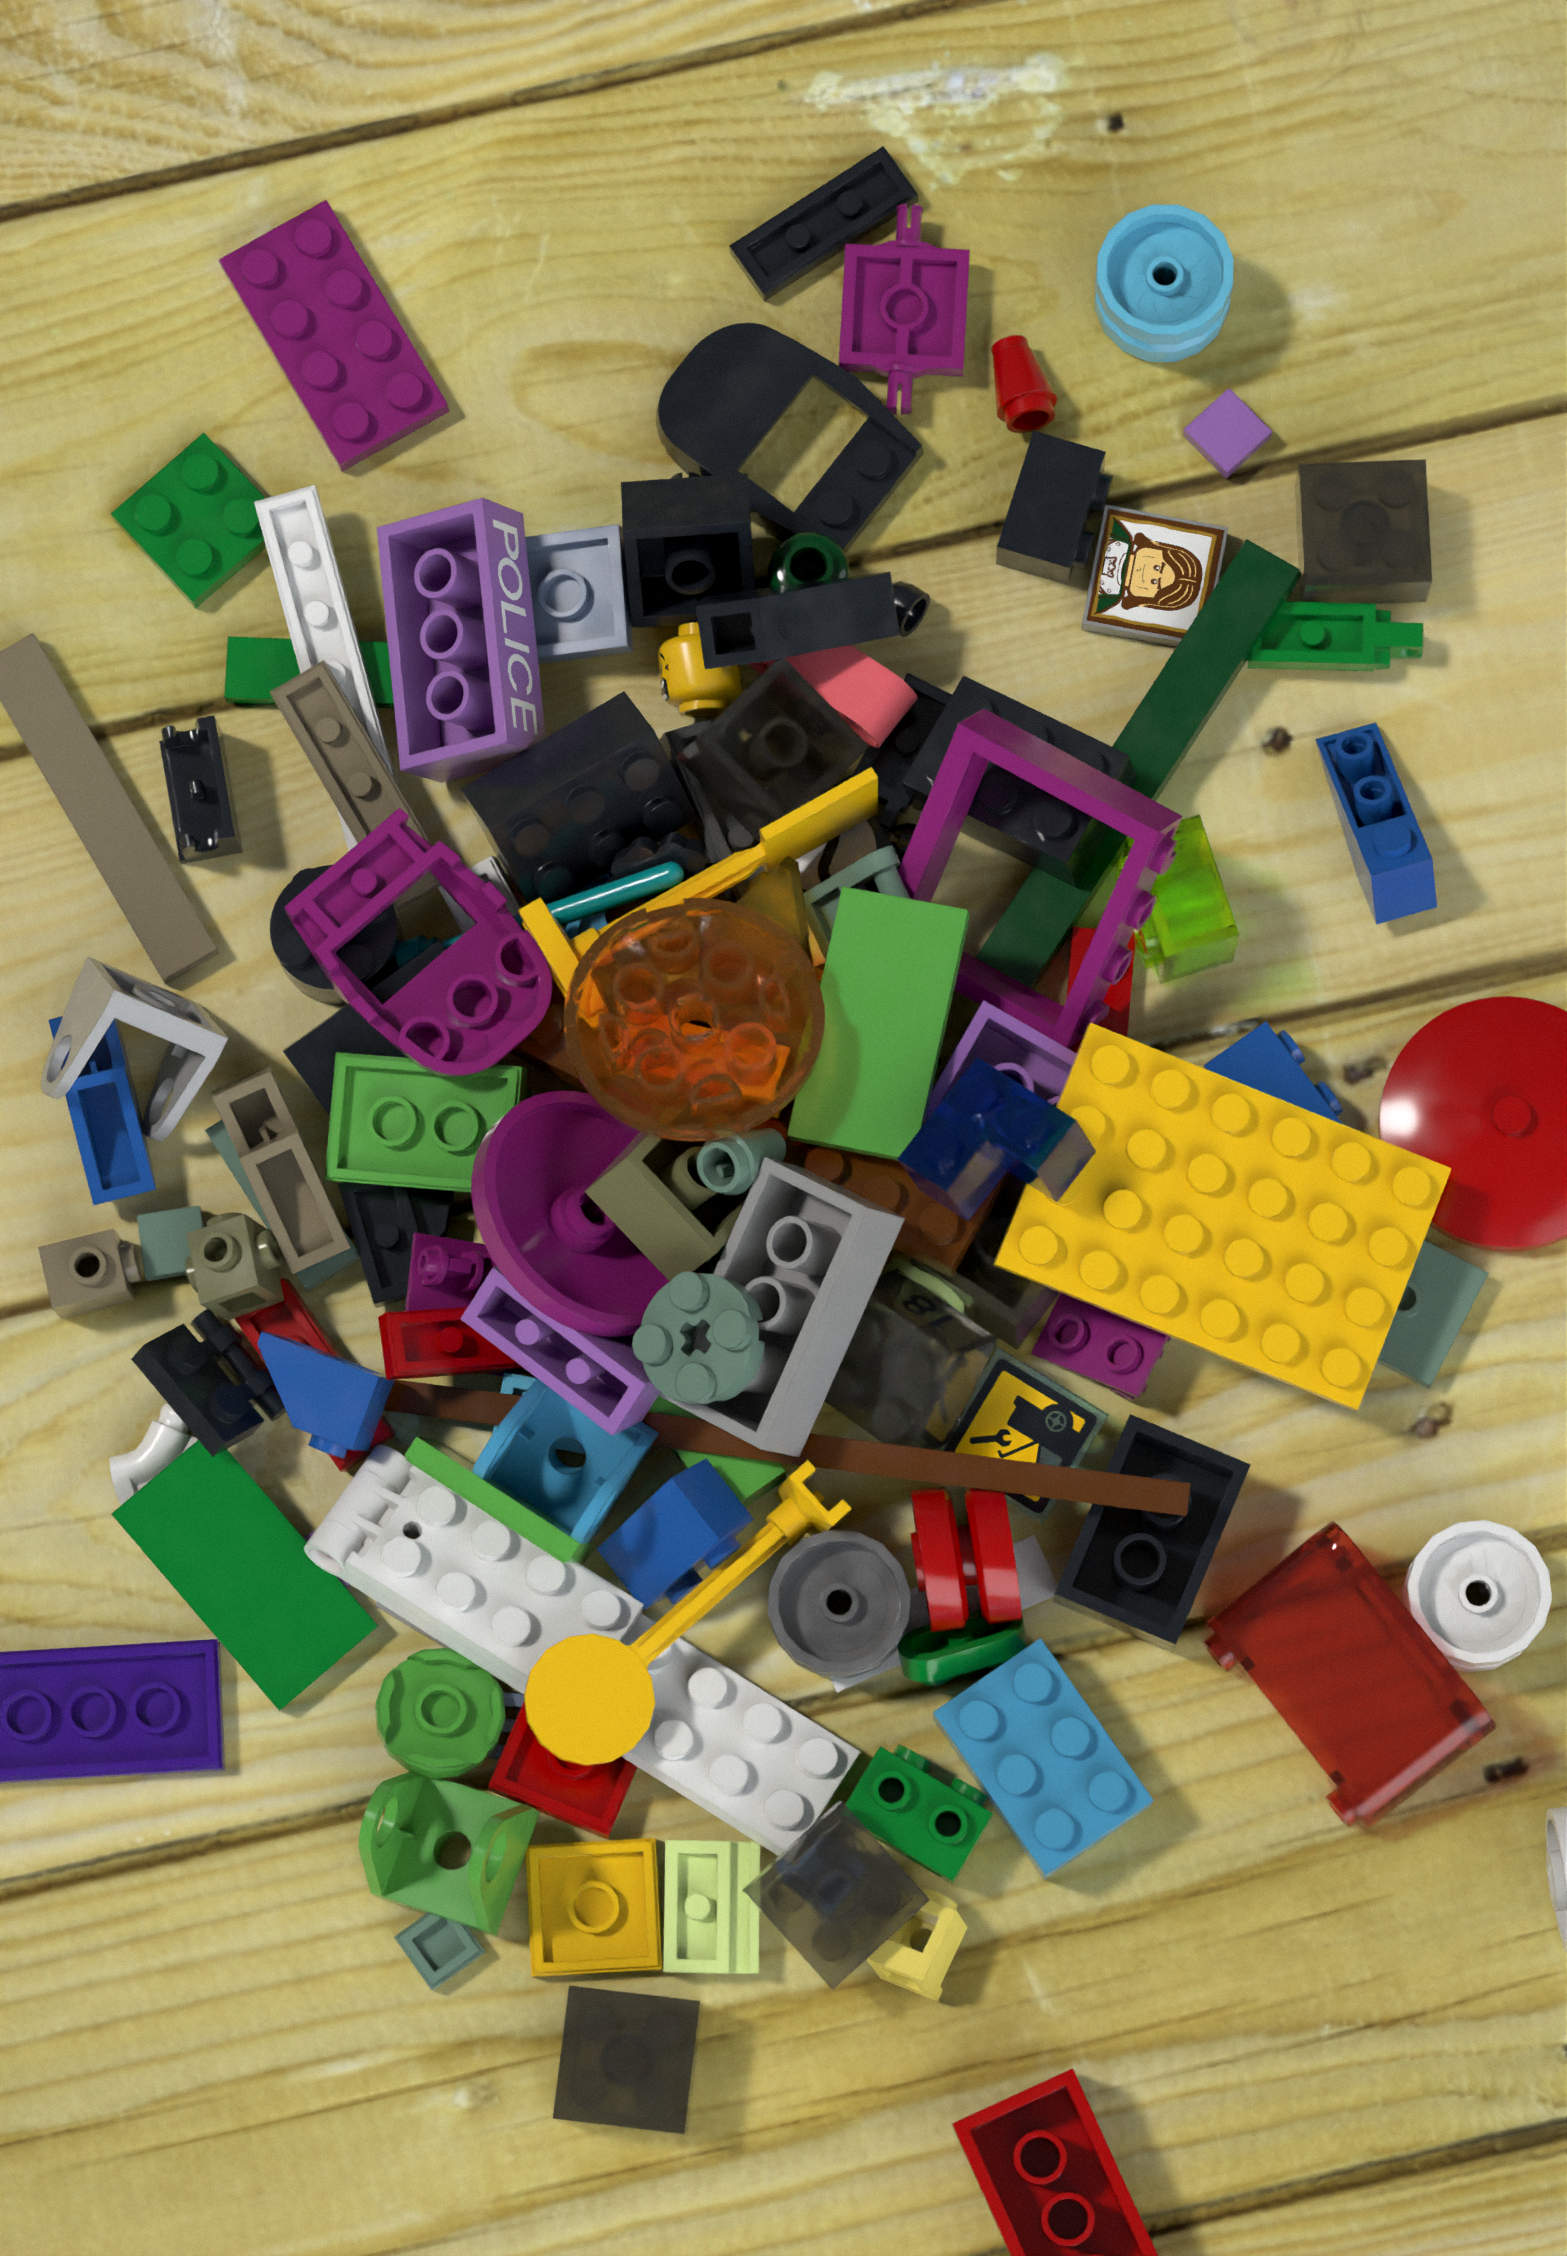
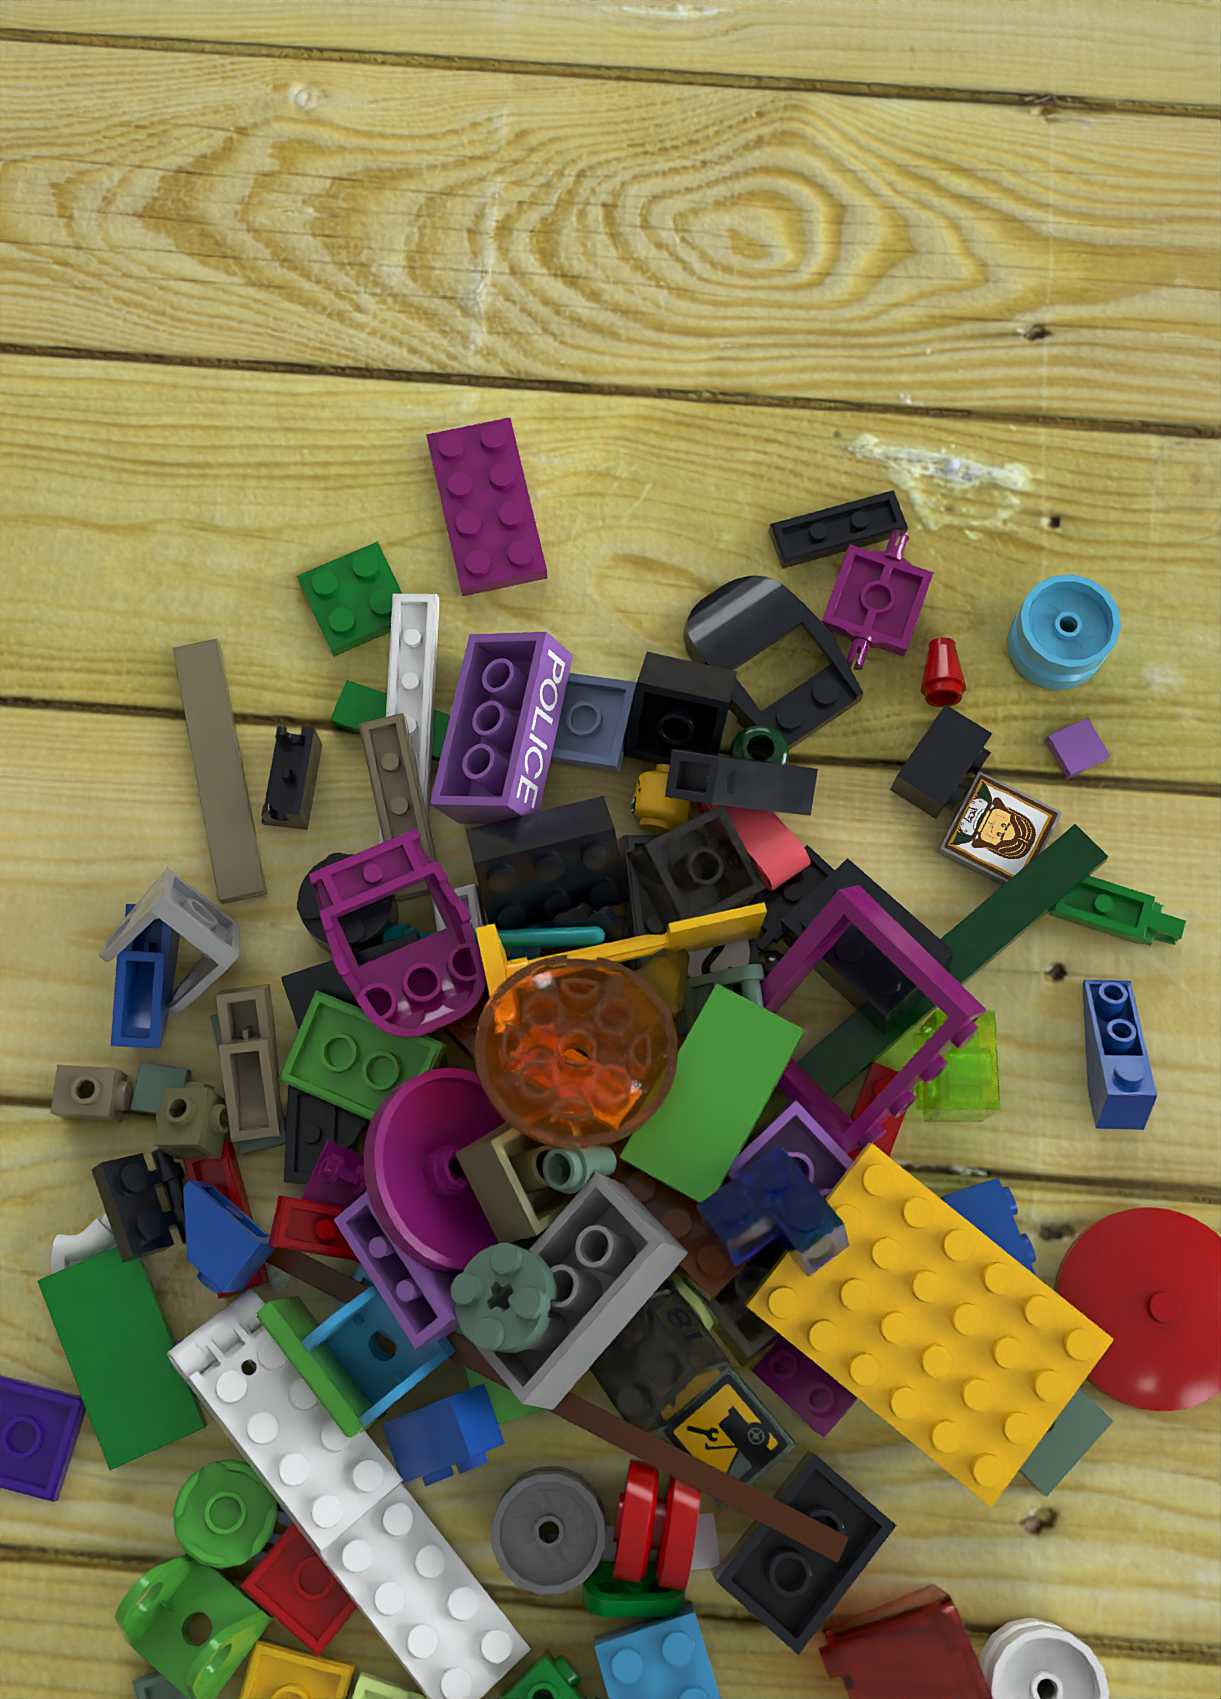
camera: 10 degrees right, 5 degrees down
(595, 1695) = (339, 1546): yellow piece -> none
(910, 606) = (823, 800): black hinge -> none
(1363, 532) = (1160, 843): clear smoke brick -> none

